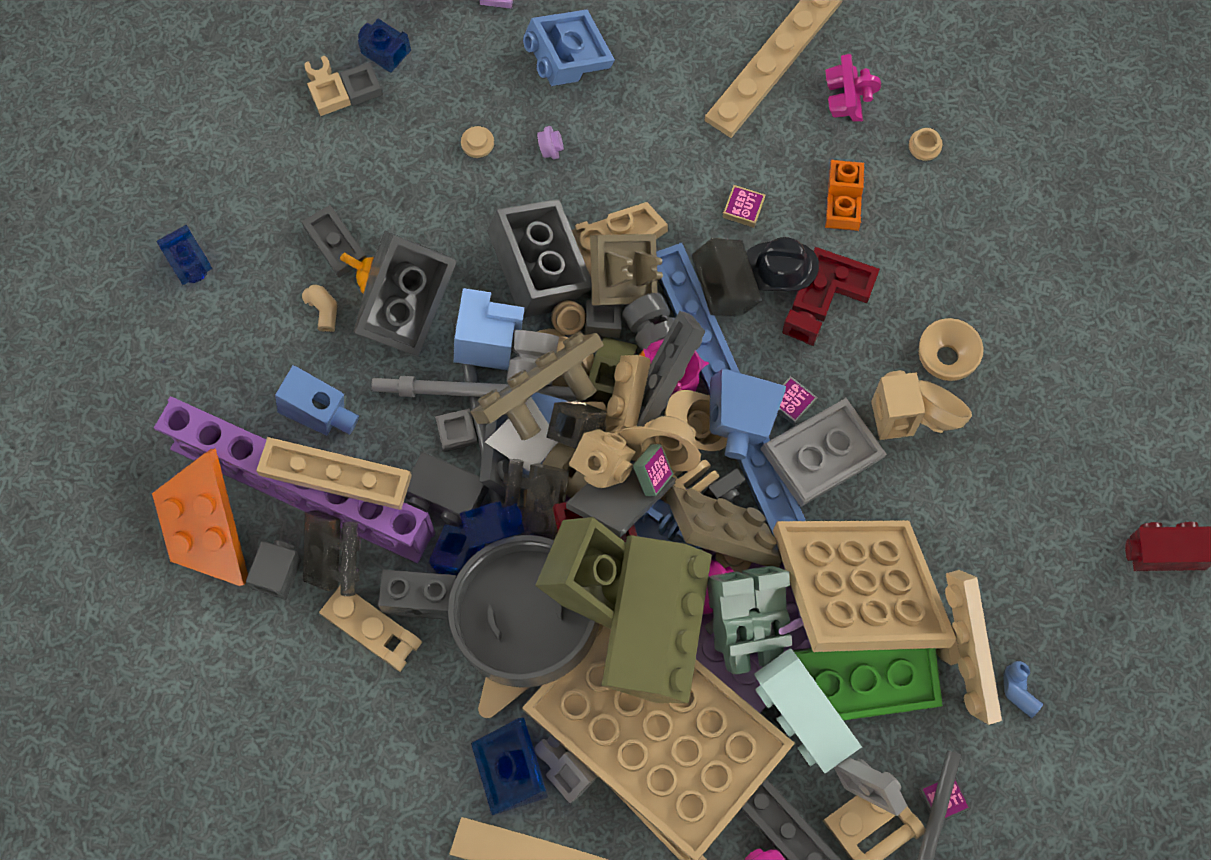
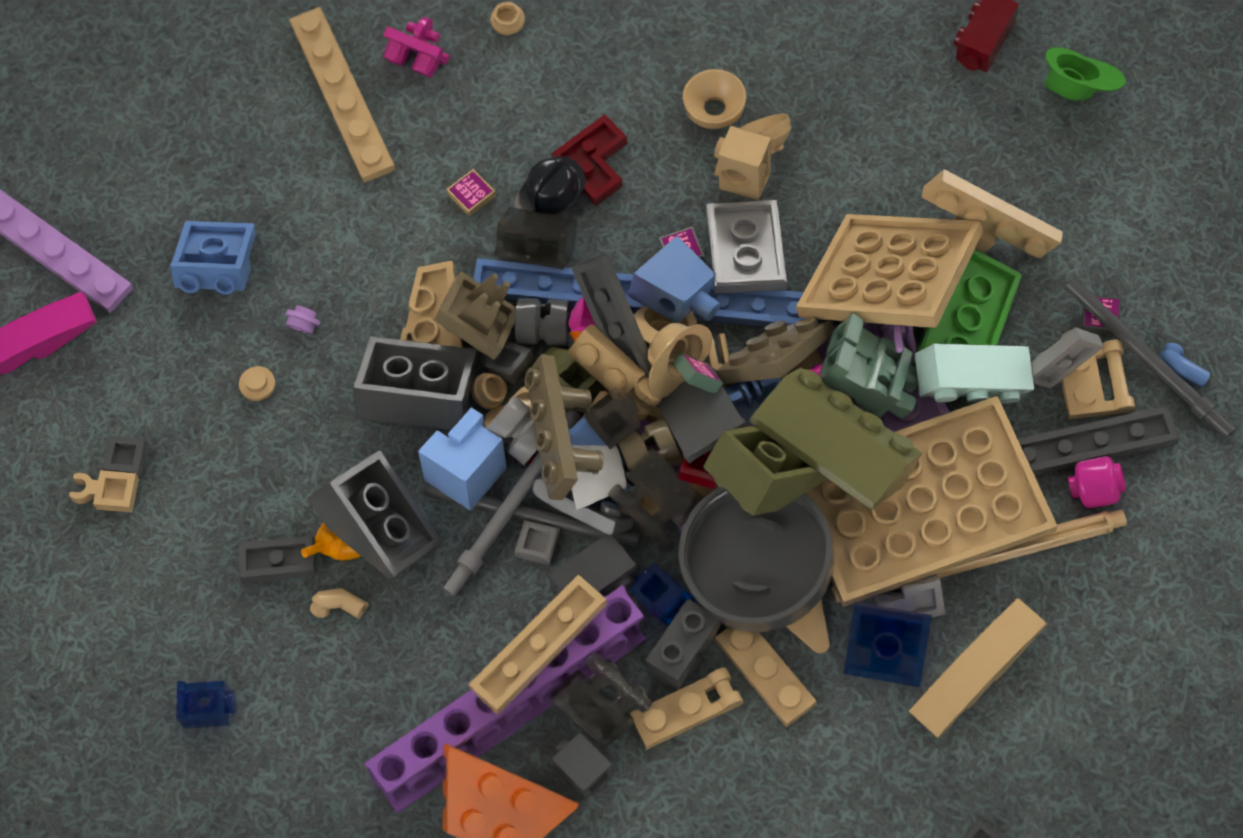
camera: 55 degrees left, 5 degrees down
(296, 397) = (438, 650): medium blue torso -> none
(383, 44) = (105, 422): clear blue brick -> none
(433, 682) = (767, 674): none -> tan plate
(491, 523) = (659, 540): clear blue brick -> none
(603, 458) = (657, 395): tan brick -> none
(726, 486) = (735, 338): dark grey plate -> none
(802, 327) = (620, 203): dark red plate -> none
(844, 195) = (512, 107): orange slope -> none
(1016, 688) = (1046, 212): medium blue arm -> none
(1180, 656) = (1079, 76): none -> bright green piece

